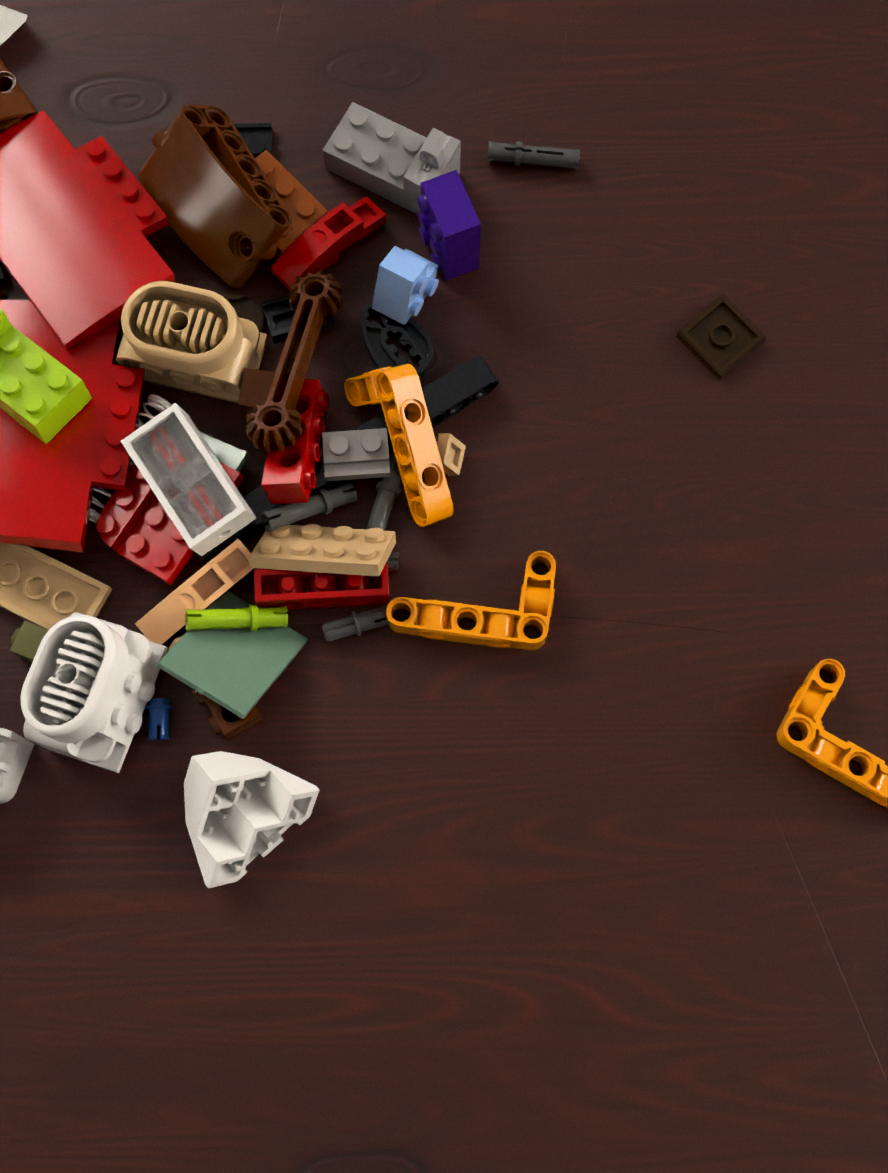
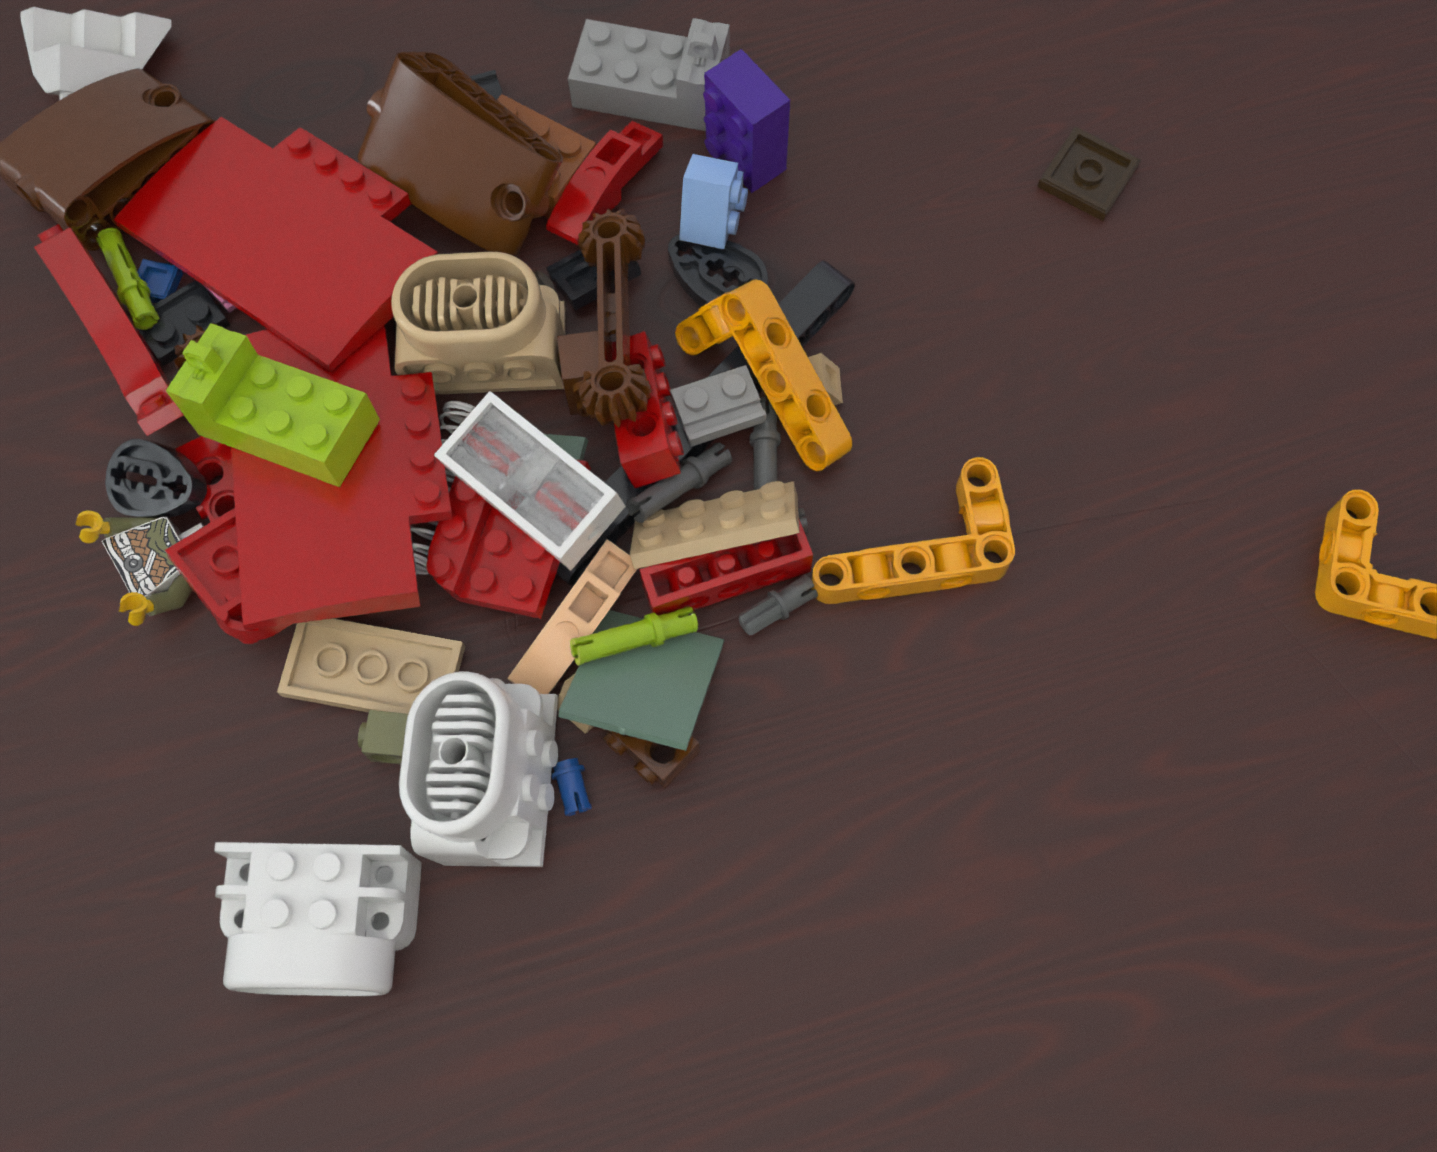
camera: 15 degrees left, 5 degrees down
(239, 811) = (709, 870): white brick -> none
(533, 155) = (814, 31): dark grey pin -> none

